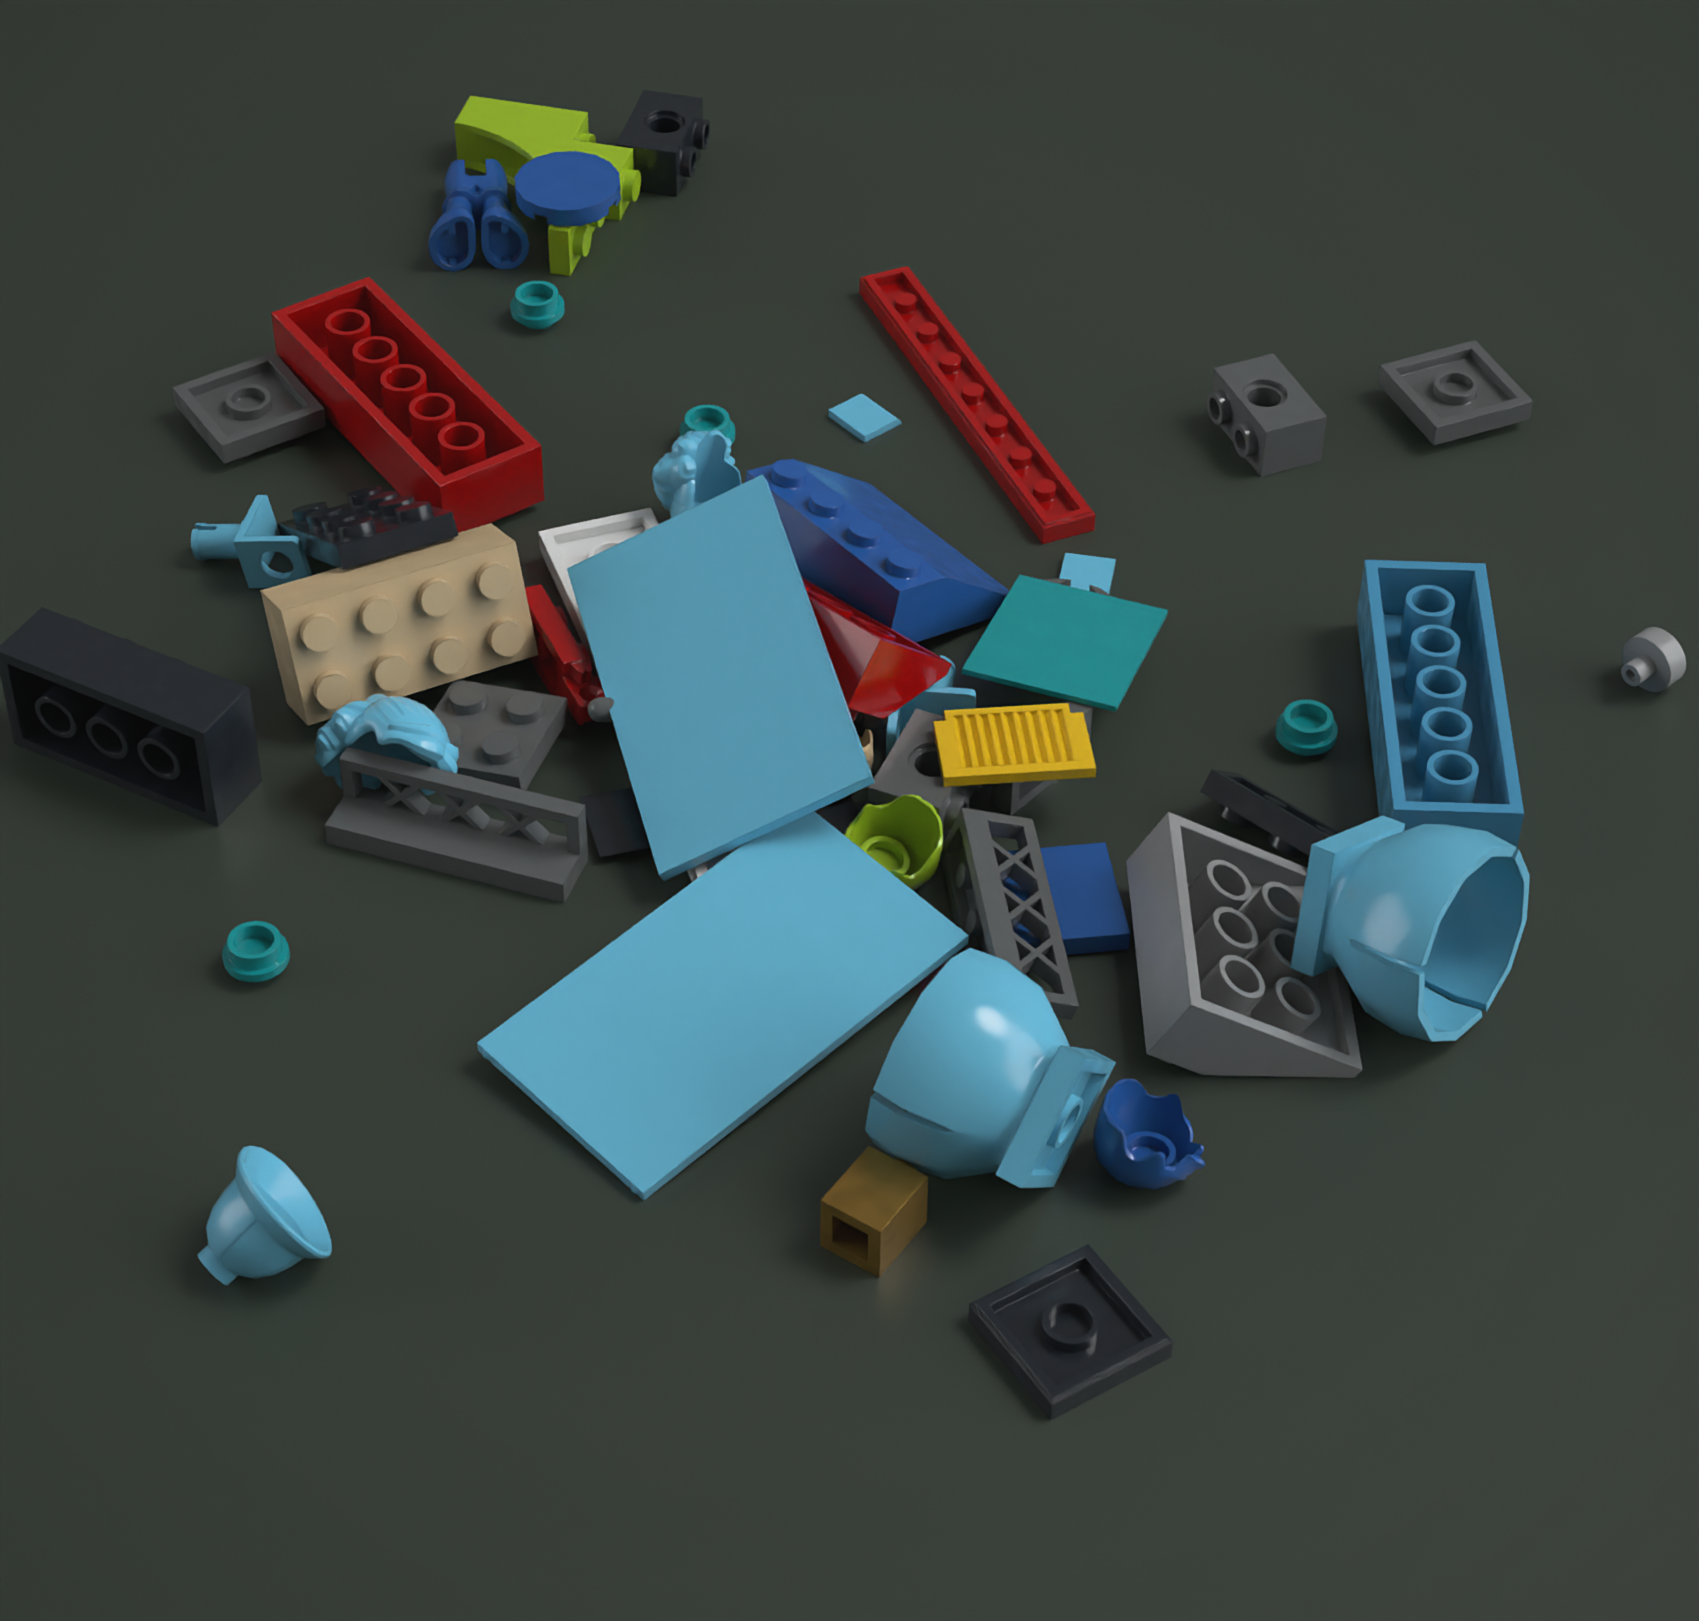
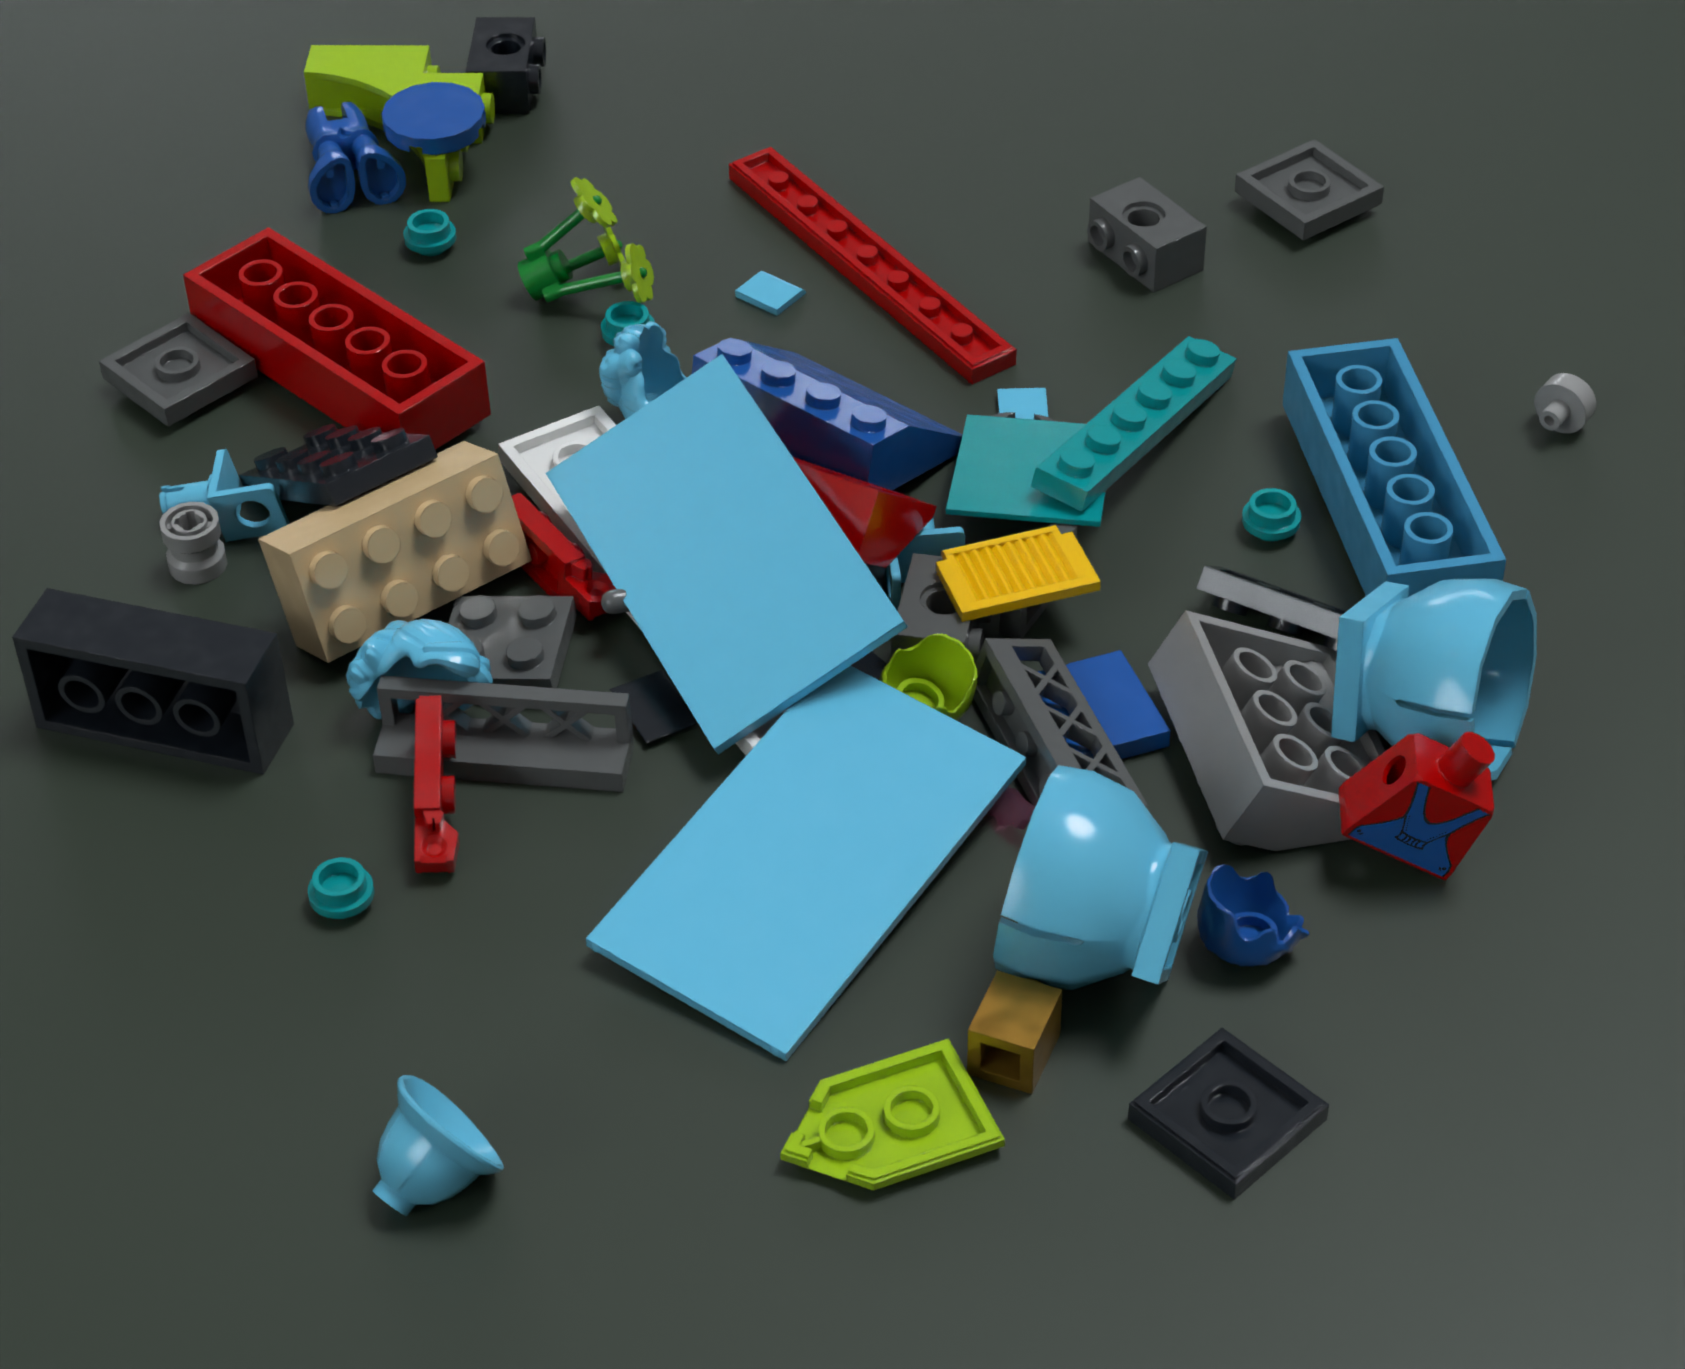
camera: 10 degrees left, 0 degrees up
(211, 584) = (193, 543): none -> light grey wheel
(369, 868) = (434, 794): none -> red hinge
(640, 363) = (546, 271): none -> plant
(729, 1277) = (894, 1120): none -> lime tile
(1186, 610) = (1133, 423): none -> teal plate
(1355, 1049) = (1421, 801): none -> red torso

